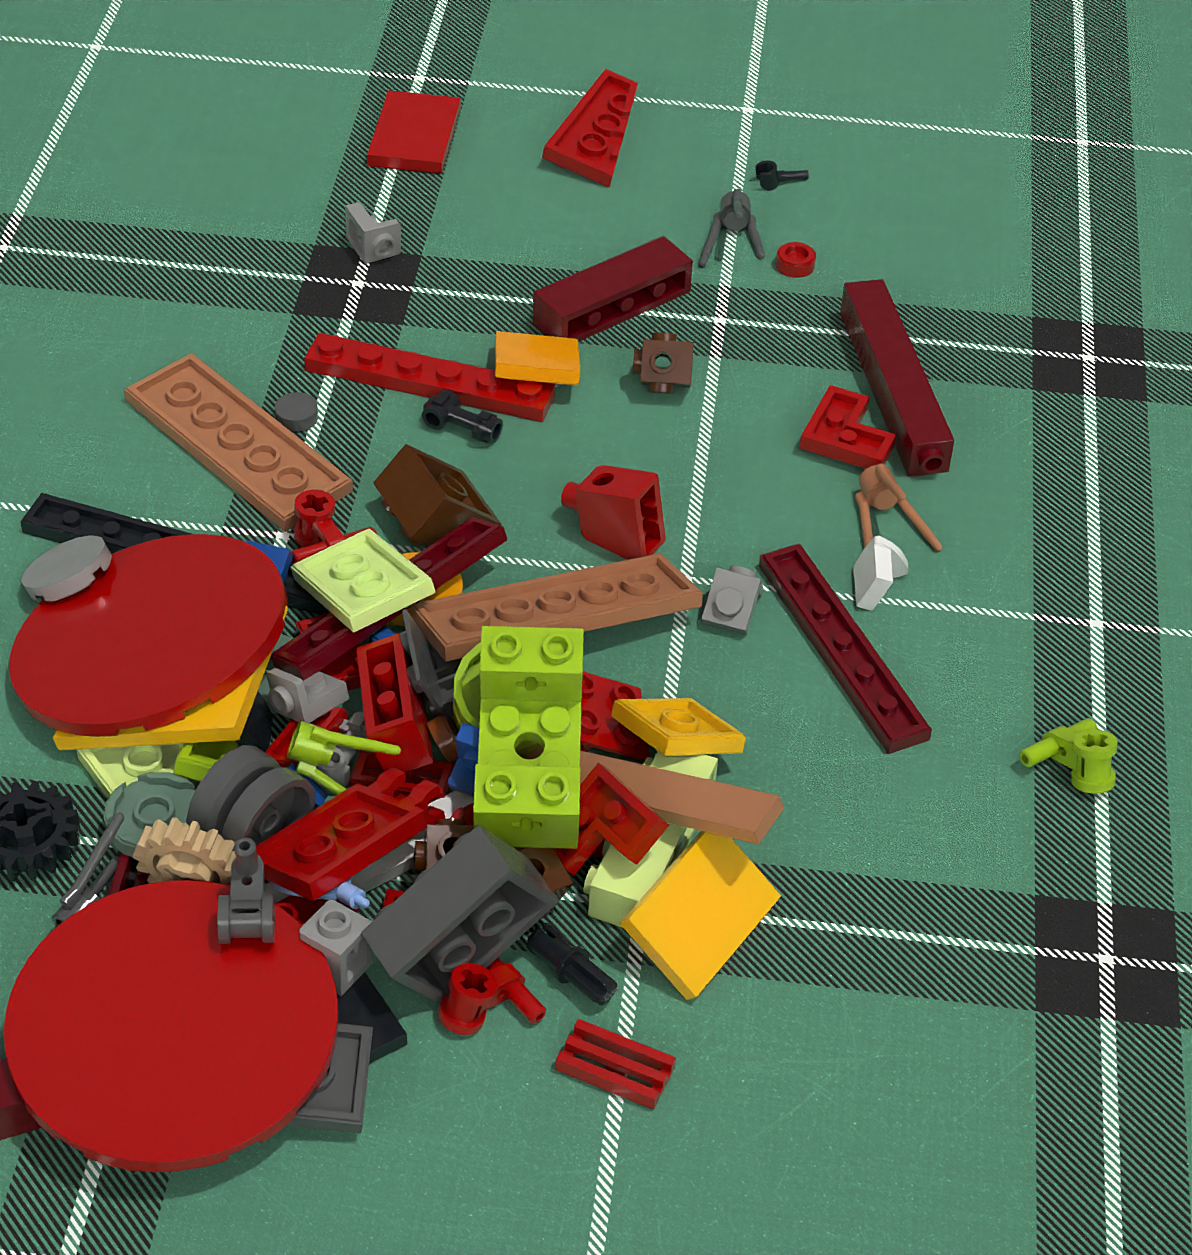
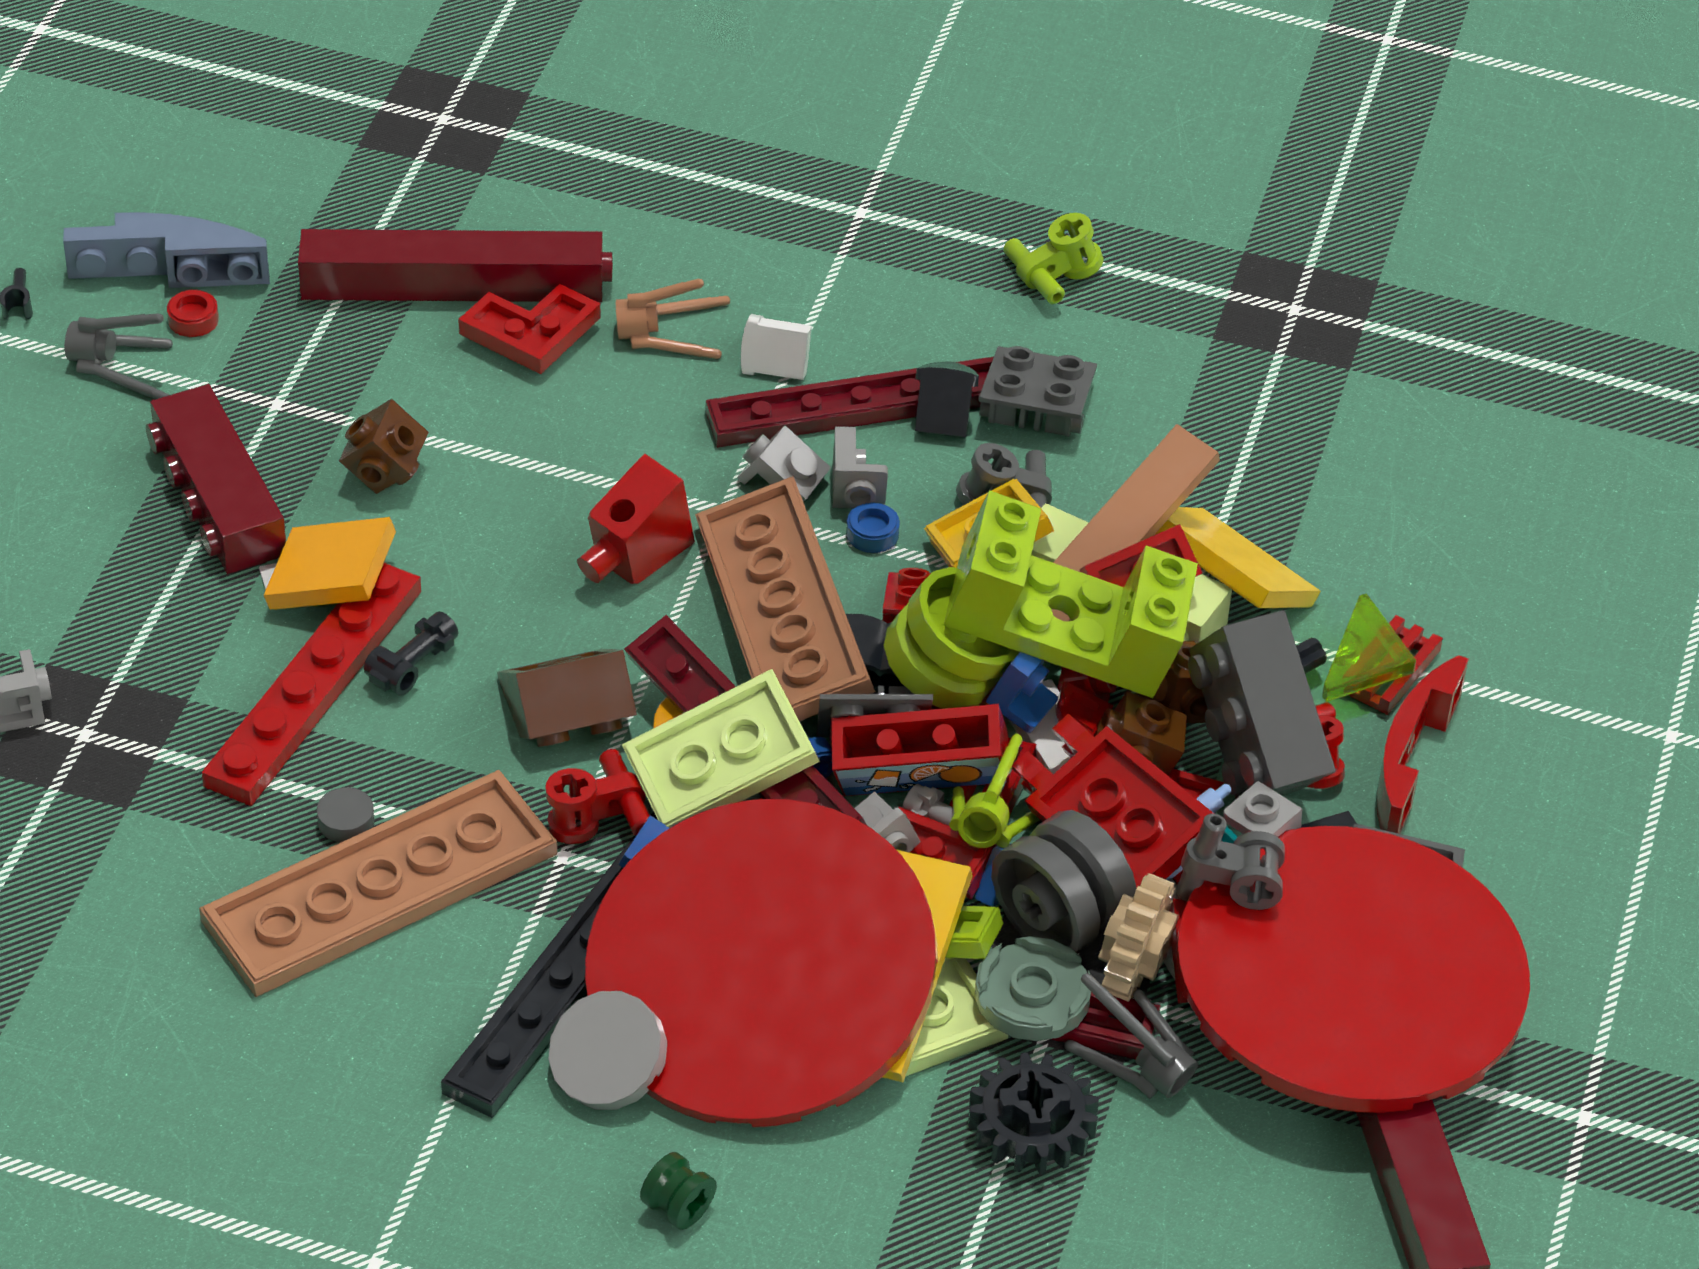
camera: 80 degrees left, 0 degrees up
(499, 1067) = (1430, 705): none -> red slope
(606, 1029) = (1367, 654): none -> clear neon green tile
(687, 669) = (872, 527): none -> blue tile
(738, 636) = (852, 478): none -> light grey bracket
(761, 767) = (1004, 467): none -> dark grey piece
(846, 223) = (183, 247): none -> sand blue slope
(849, 685) = (945, 398): none -> black tile
(891, 753) = (1037, 384): none -> dark grey hinge

